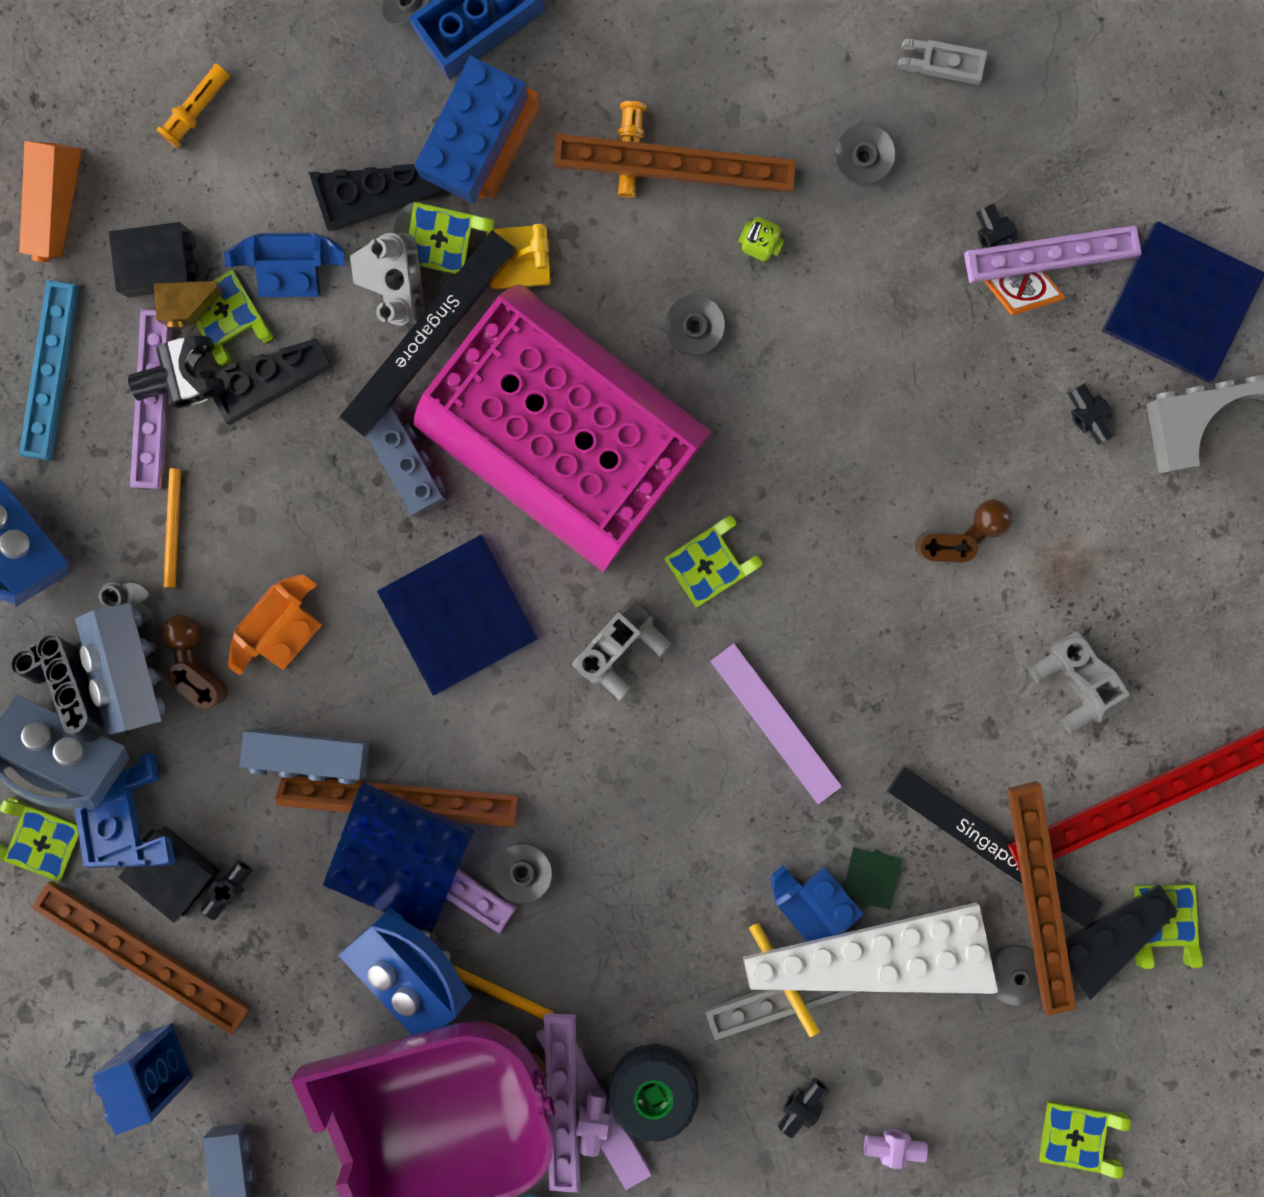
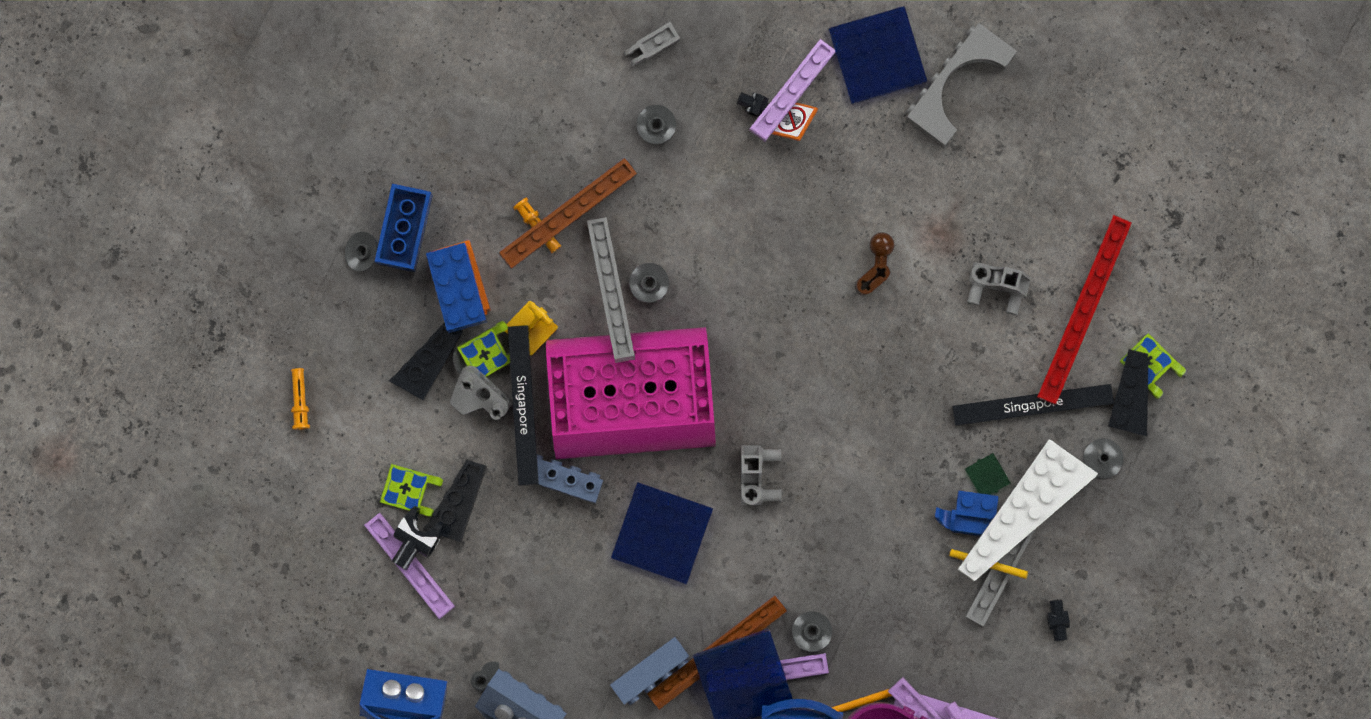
camera: 40 degrees left, 5 degrees down
(47, 198) = (270, 512): orange slope -> none
(49, 370) = (344, 598): dark azure tile -> none
(152, 256) = (349, 493): black brick -> none
(172, 527) = (478, 620): light orange bar -> none
(181, 635) = (533, 669): reddish brown beam -> none
(184, 302) = (385, 501): pearl gold slope -> none
(275, 626) = (575, 621): orange plate -> none
(286, 261) = (417, 434): blue plate -> none
(640, 293) = (610, 290): none -> light grey plate
(653, 1093) = (976, 679): black wheel -> none
(707, 564) = (762, 394): lime flag -> none
(761, 239) = (643, 211): lime head -> none
(775, 723) = (869, 442): lavender tile -> none
(895, 1148) = (1122, 598): lavender axle -> none
(1041, 897) = (1075, 408): dark orange plate -> none
(1077, 1138) = (1206, 510): lime flag -> none
(1091, 414) = (883, 150): black axle -> none

